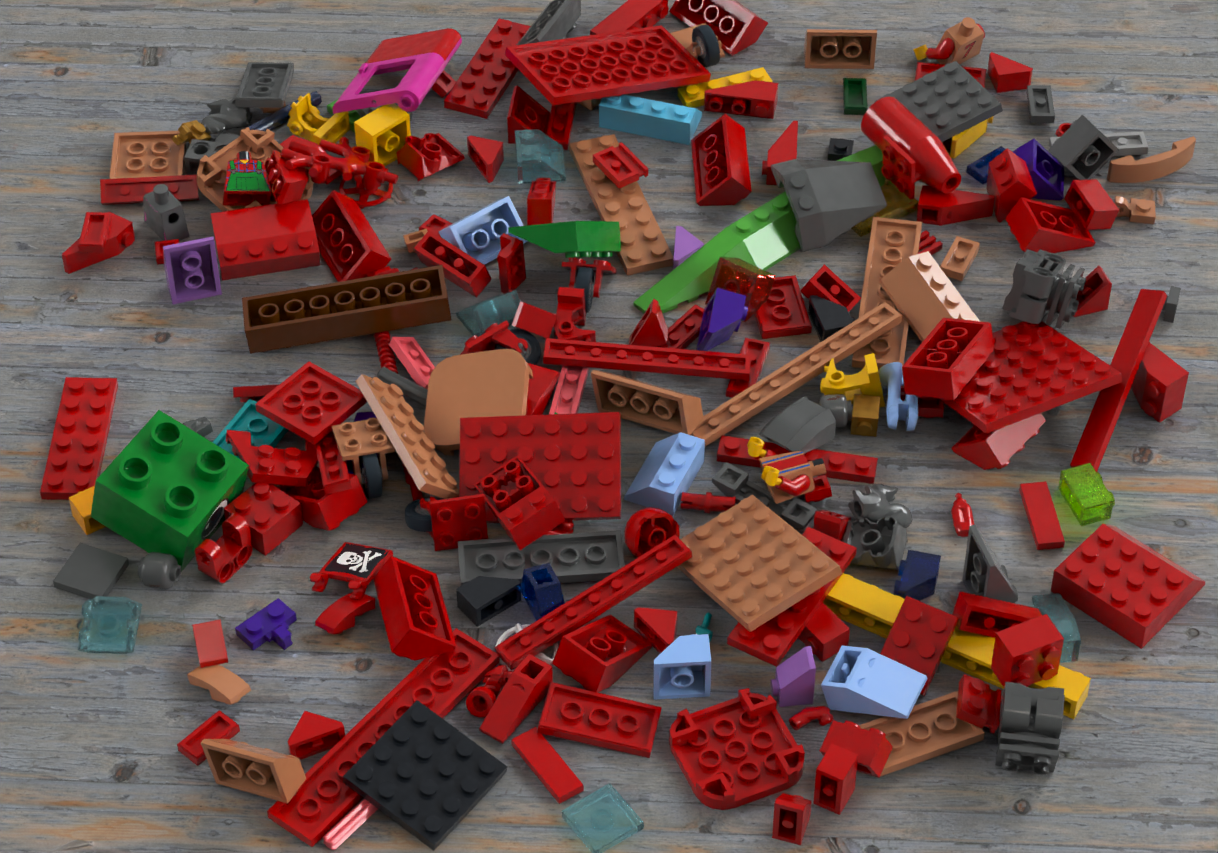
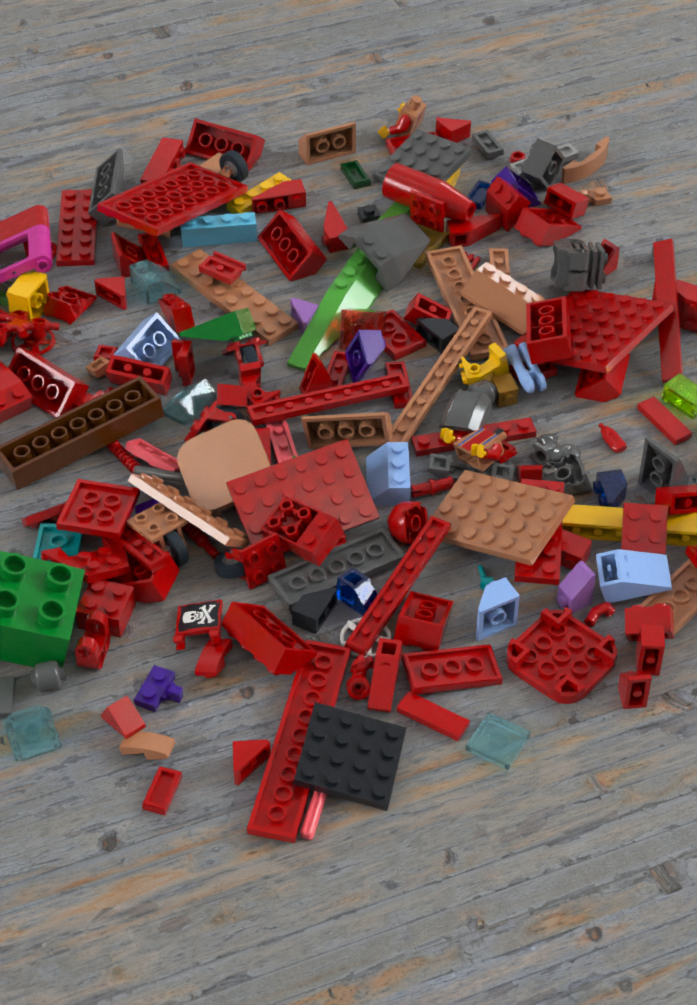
camera: 25 degrees left, 0 degrees up
(254, 769) = (220, 800): nougat slope -> none
(656, 626) = (454, 588): red slope -> none

